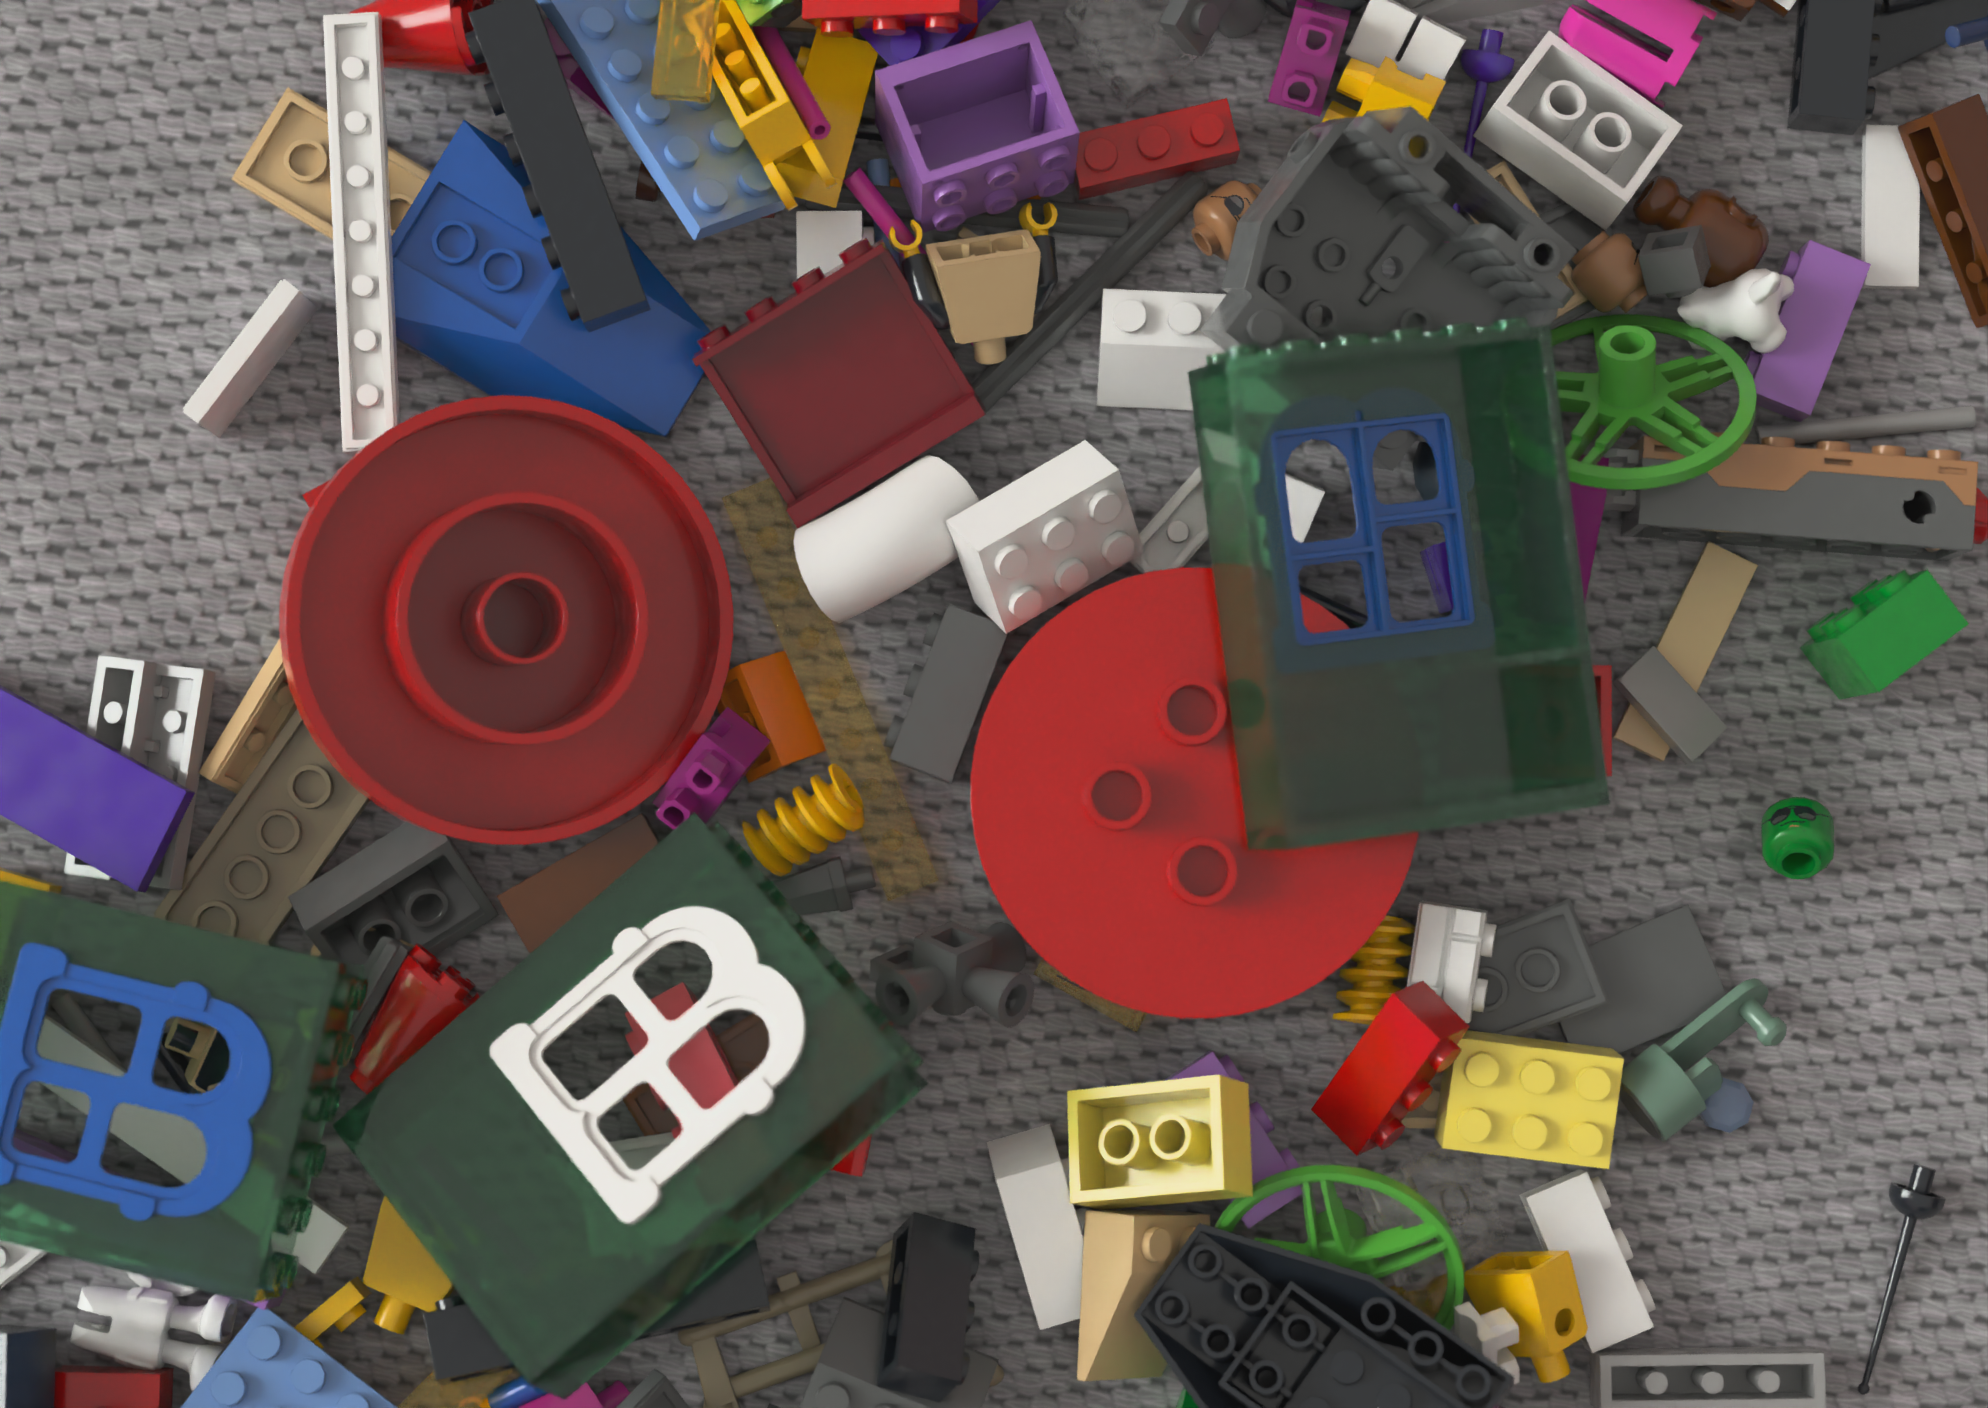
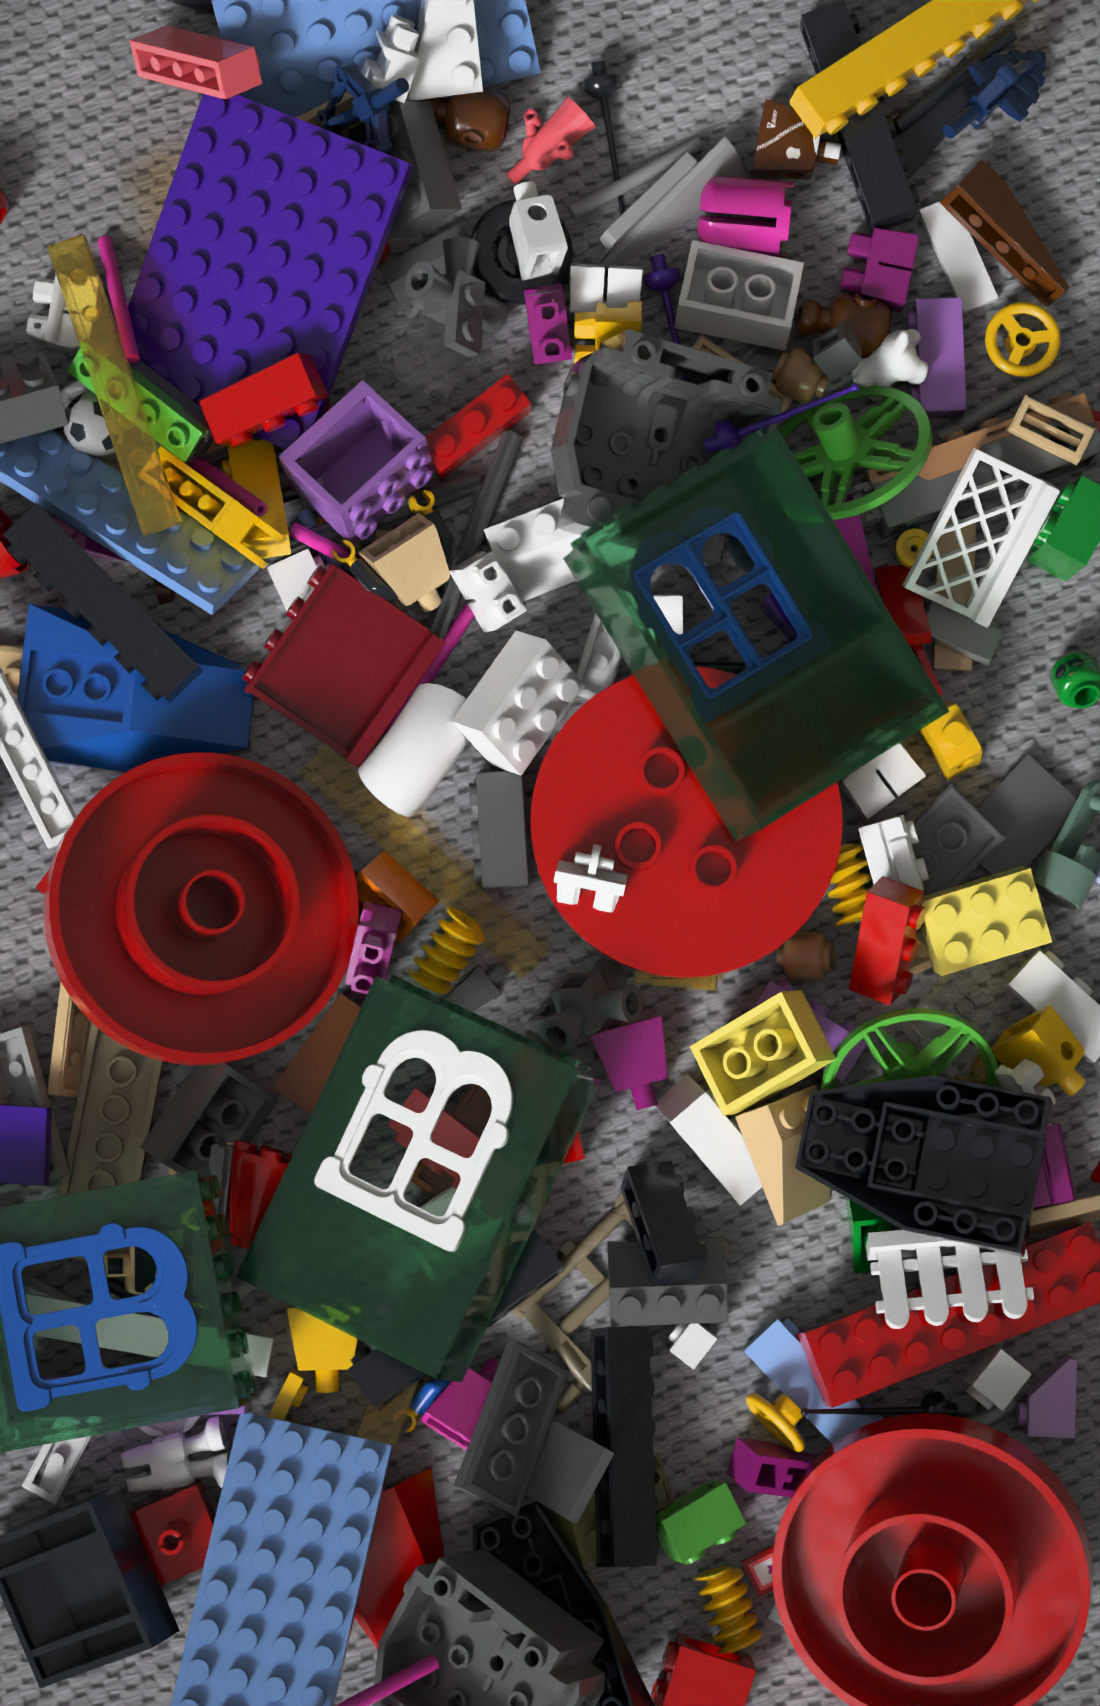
camera: 20 degrees left, 0 degrees up
(988, 1073) = (634, 1058): none -> magenta torso
(995, 415) = (452, 637): none -> dark pink piece
(1039, 806) = (592, 874): none -> white hips
(1077, 370) = (492, 592): none -> white hips
(1218, 216) = (536, 450): medium nougat head -> none
(1275, 1041) = (806, 956): none -> medium nougat head
(1455, 857) = (869, 791): none -> white hips
(1483, 310) = (730, 436): none -> dark purple sword
(1594, 846) = (952, 743): none -> yellow torso
(1614, 631) = (903, 604): none -> red tile
(1672, 564) = (910, 539): none -> yellow tile
(1786, 626) = (1012, 544): none -> white fence
(1789, 182) = (887, 266): none -> magenta hips
(1894, 503) = (1044, 443): none -> tan tile
(1910, 367) = (1018, 352): none -> yellow piece

